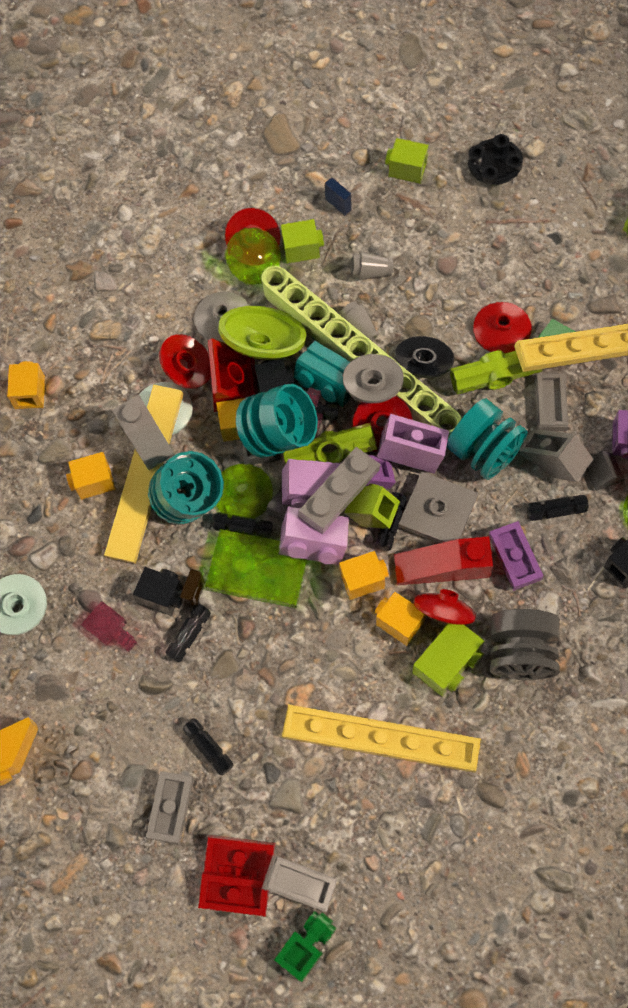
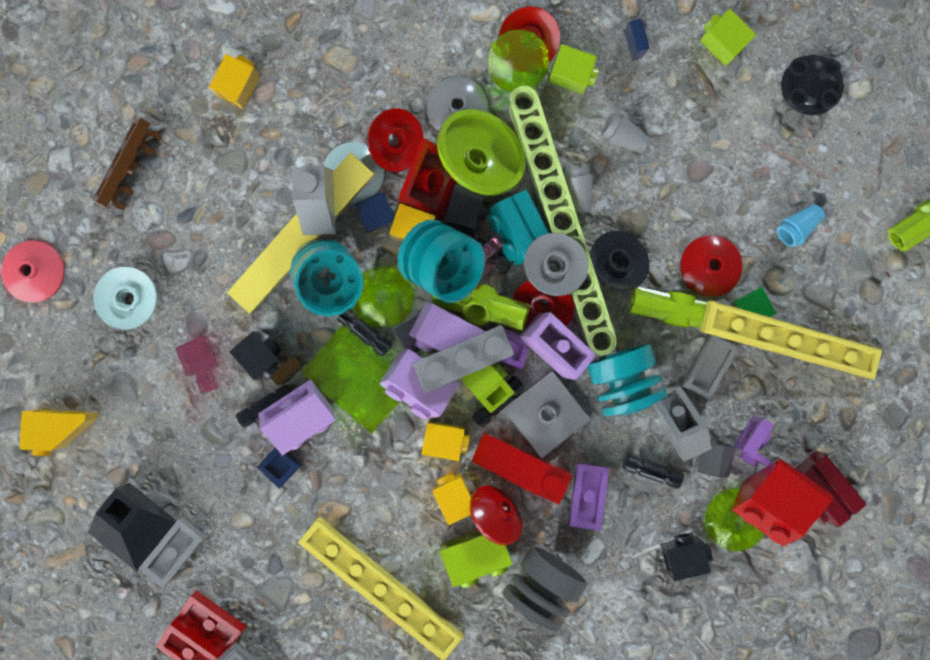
camera: 20 degrees right, 20 degrees up
(90, 476) = (250, 208): yellow brick -> none
(117, 803) = (130, 525): none -> black slope
(199, 427) = (375, 212): none -> dark blue tile
(208, 746) = (231, 516): black axle -> none
(222, 622) = (296, 417): none -> lavender brick
(228, 679) = (279, 467): none -> dark blue tile
(551, 262) = (799, 226): none -> medium azure cone

